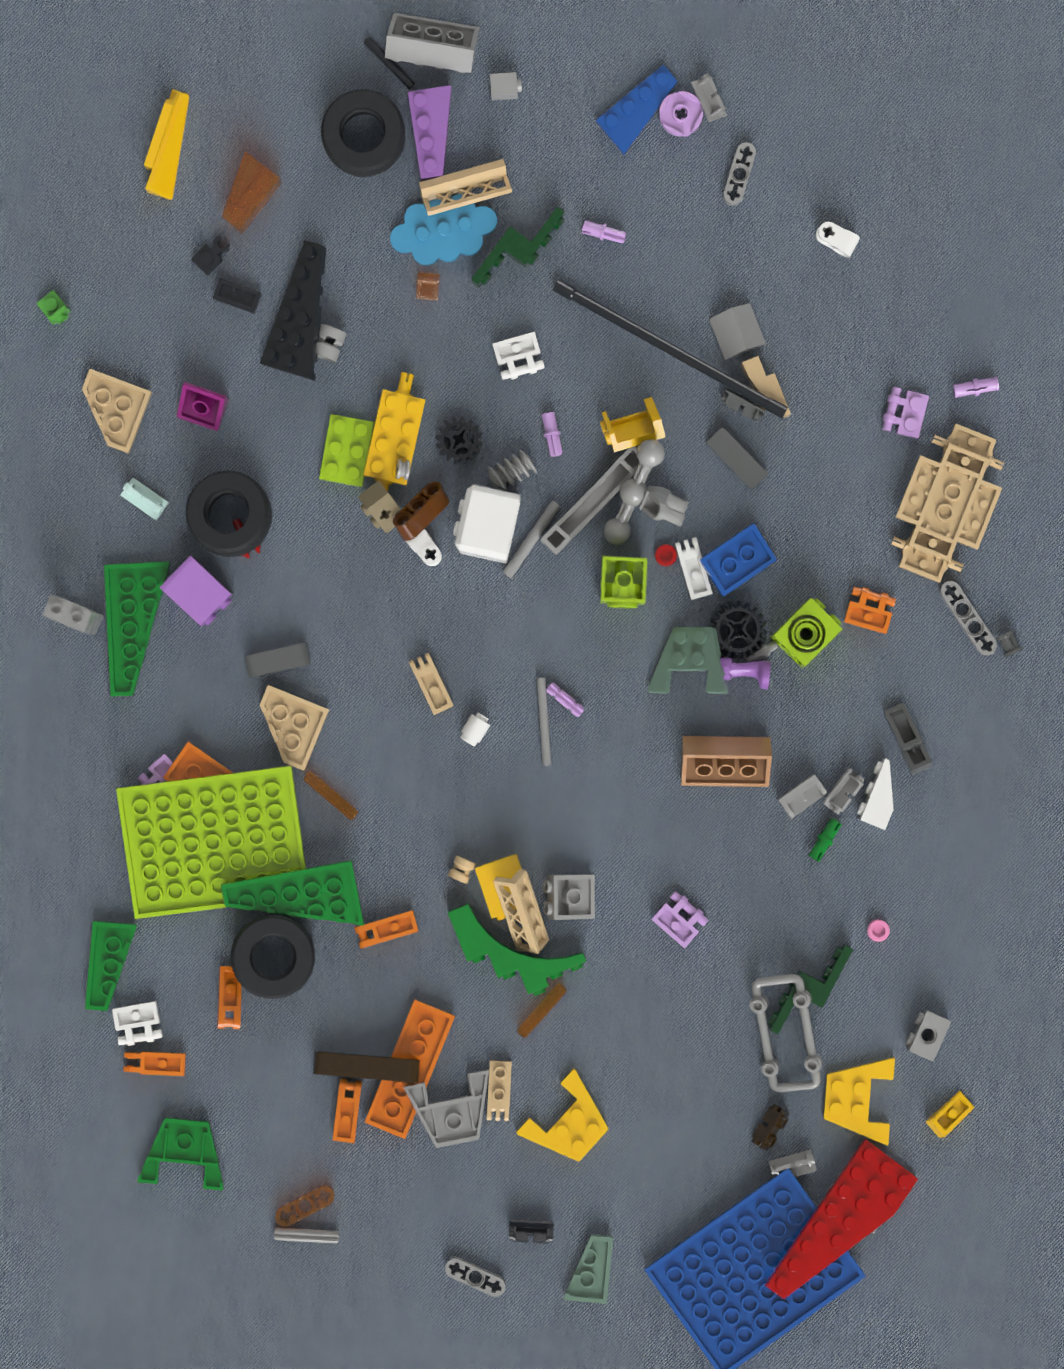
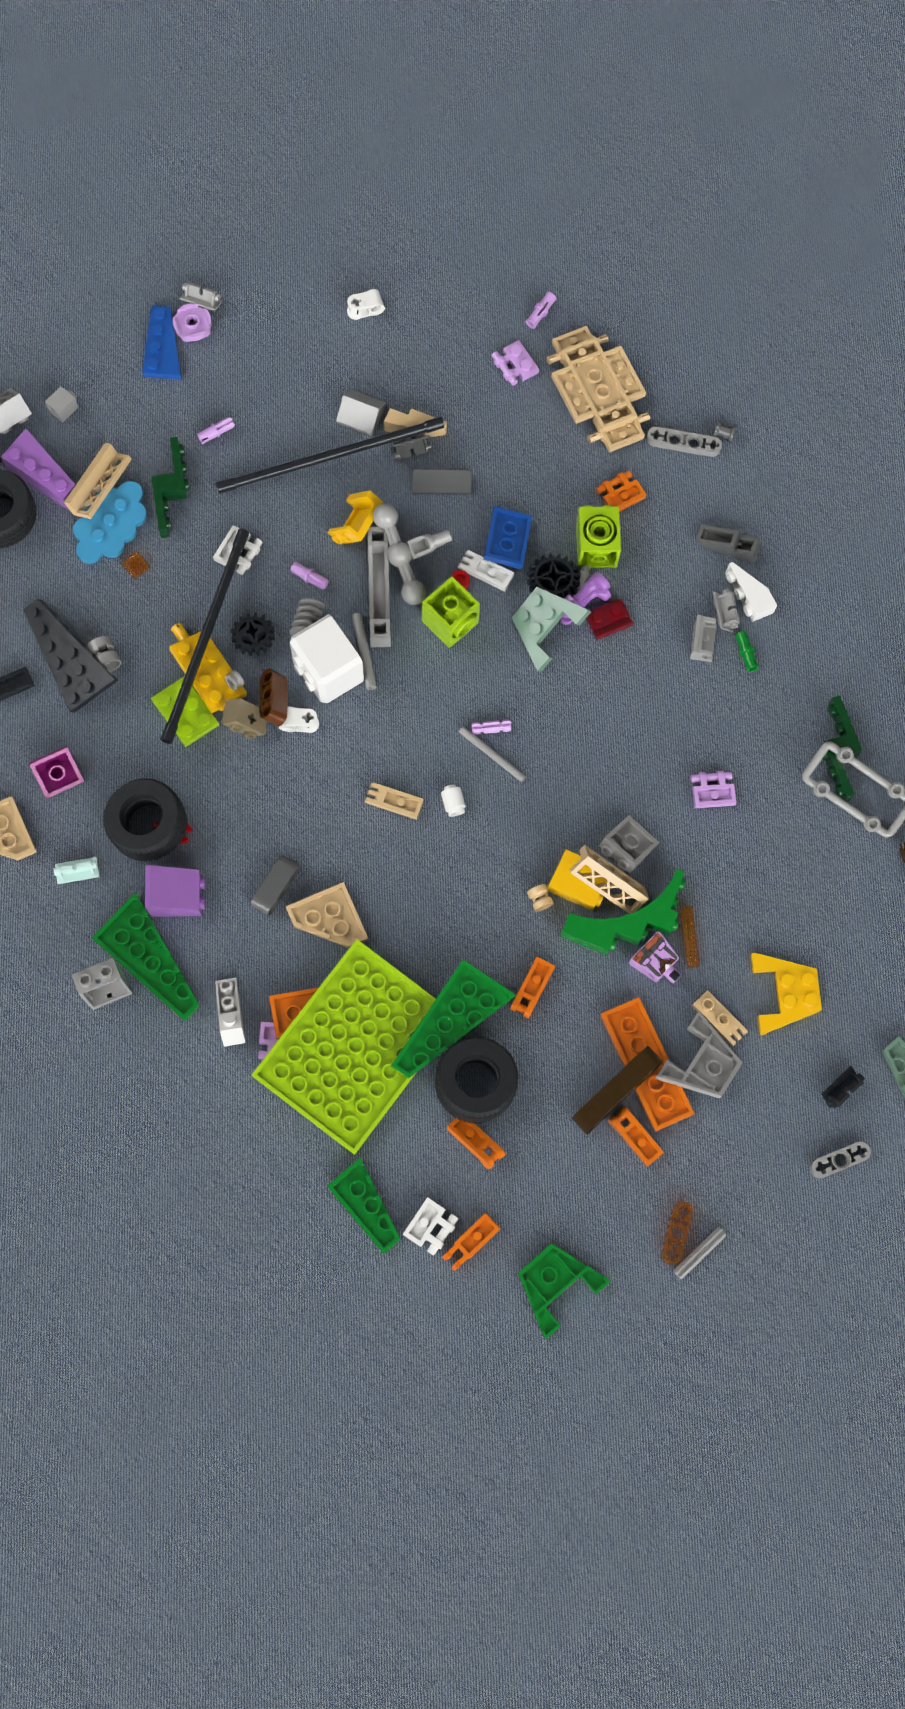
camera: 50 degrees left, 15 degrees down
(150, 722) = (229, 1012): none -> white slope
(319, 460) = (172, 724): none -> black piece
(330, 795) = (402, 938): clear orange axle -> none
(497, 1002) = (656, 959): none -> torso
(726, 761) = (634, 663): medium nougat slope -> none
(738, 157) = (265, 316): light grey beam -> none
(747, 704) = (609, 619): none -> dark red plate
(878, 930) = (840, 674): bright pink tile -> none

